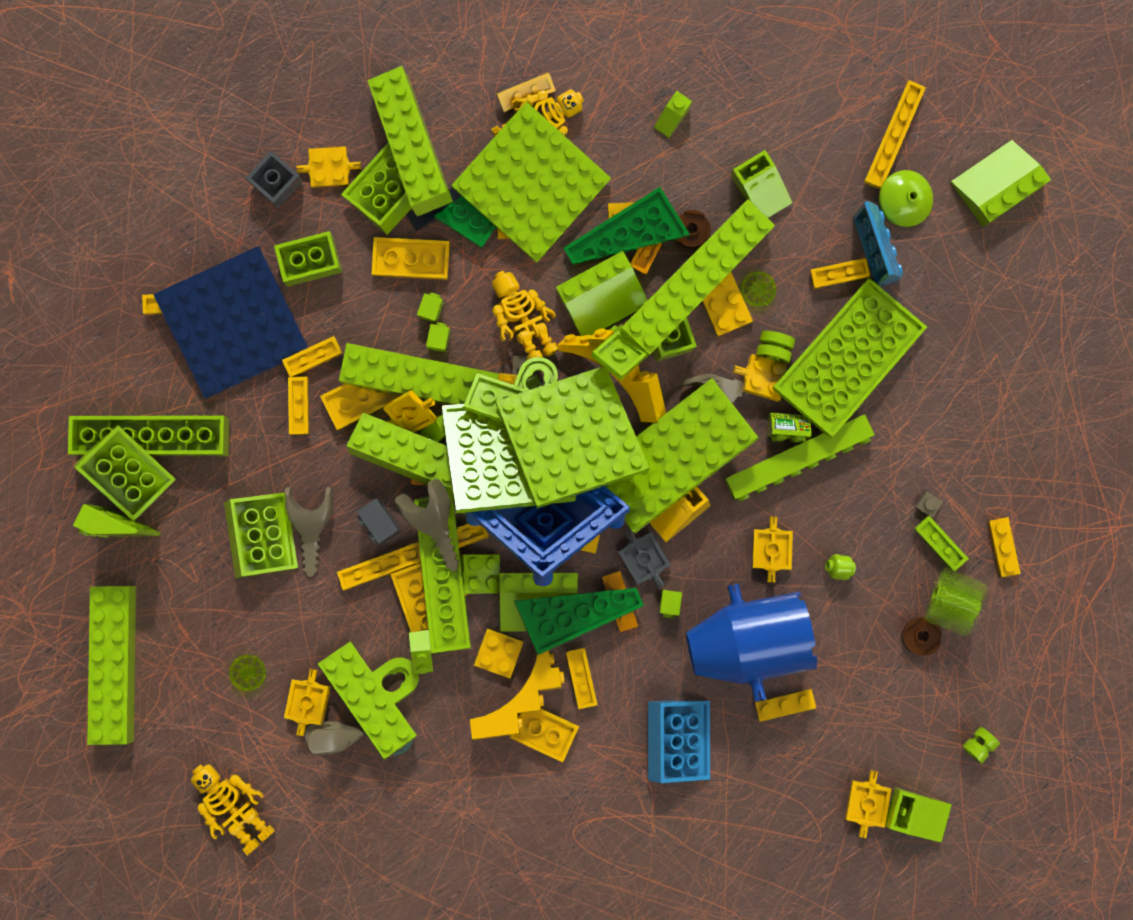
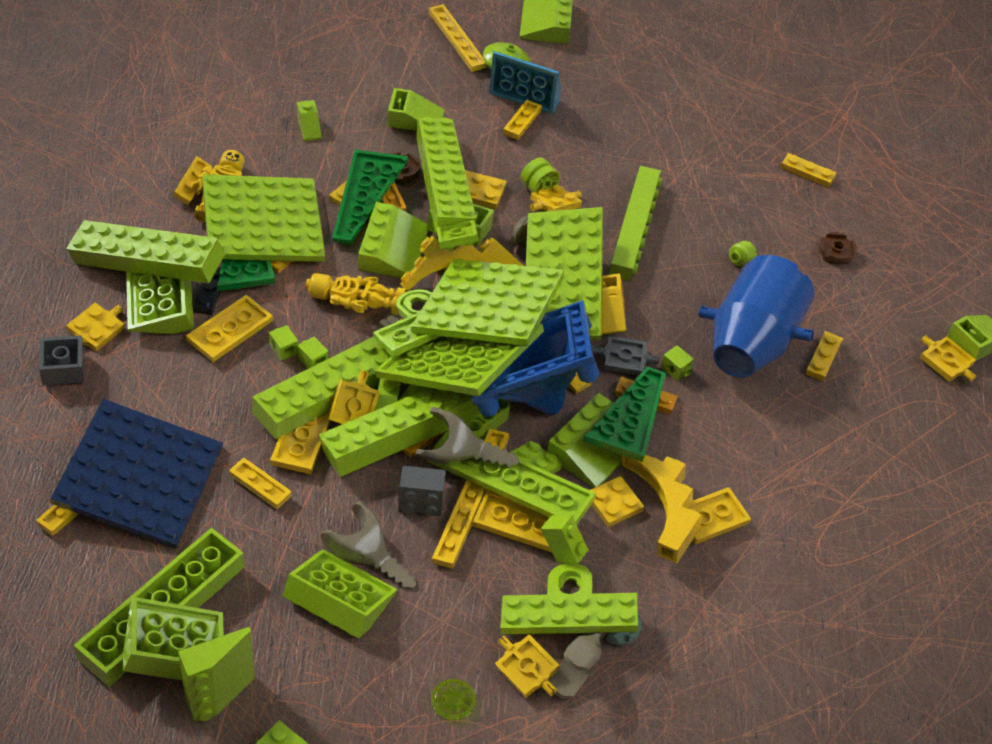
camera: 55 degrees left, 35 degrees down
(308, 259) = (152, 383): lime brick -> none
(312, 357) = (231, 444): yellow plate -> none
(581, 678) = (695, 462): yellow plate -> none
(678, 740) = (796, 435): dark azure slope -> none
(758, 289) = (486, 165): clear neon green wheel -> none
(772, 549) = (691, 281): yellow plate -> none
(788, 426) = (613, 207): lime slope -> none
(849, 358) = (590, 149): lime plate -> none
(928, 504) = (739, 185): dark tan plate -> none
(941, 543) = (775, 195): lime plate -> none
(956, 602) = (829, 204): lime piece -> none
(974, 747) = (952, 267): lime wheel -> none

